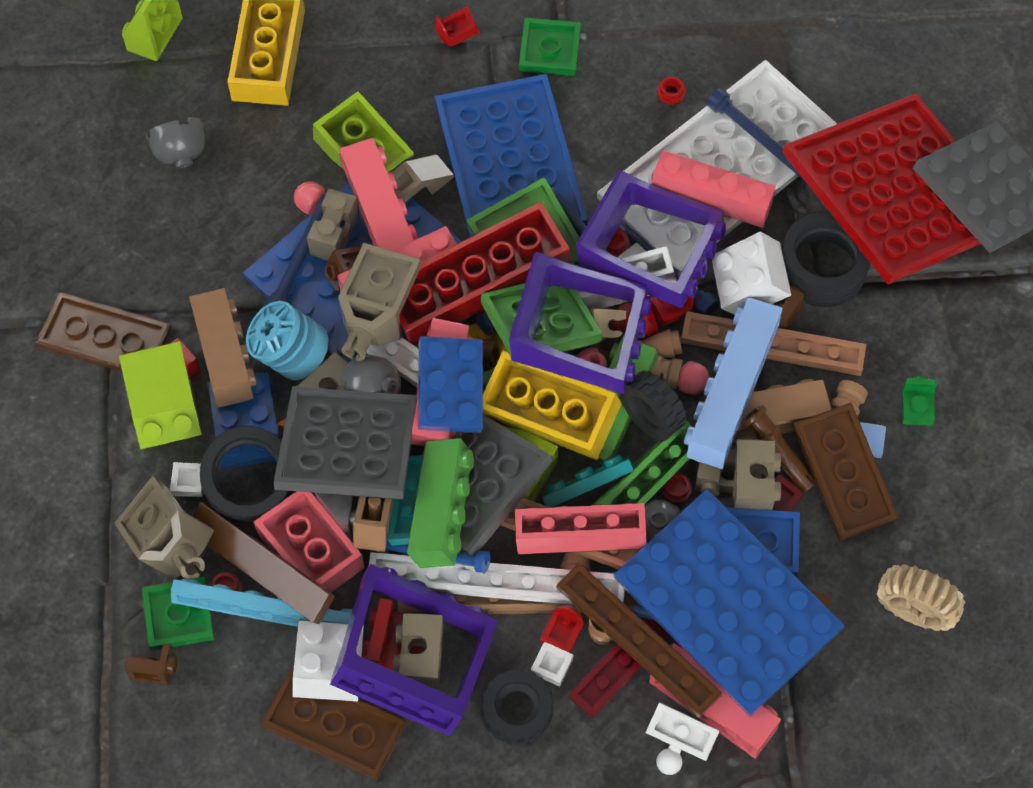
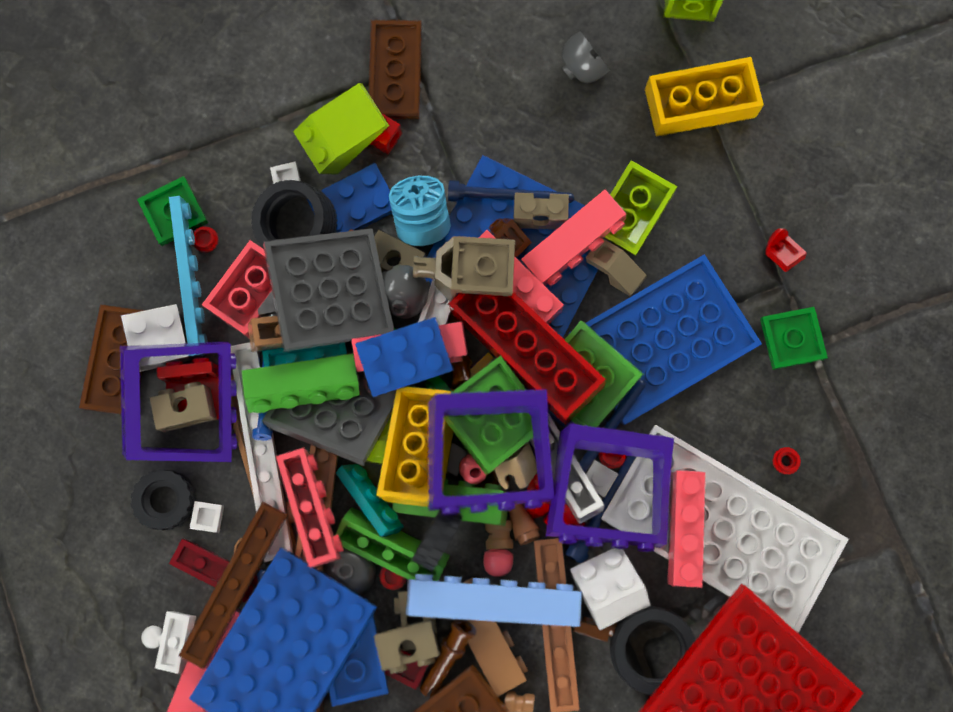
camera: 75 degrees right, 15 degrees up
(148, 669) = (122, 208): reddish brown bracket -> none
(163, 532) = (221, 171): dark tan plate -> none
(221, 347) = (404, 159): medium nougat brick -> none
(265, 565) = (214, 262): tile -> none
(308, 196) = (570, 182): coral piece -> none
(563, 628) = (236, 516): red plate -> none
(720, 102) = (783, 511): dark blue piece -> none

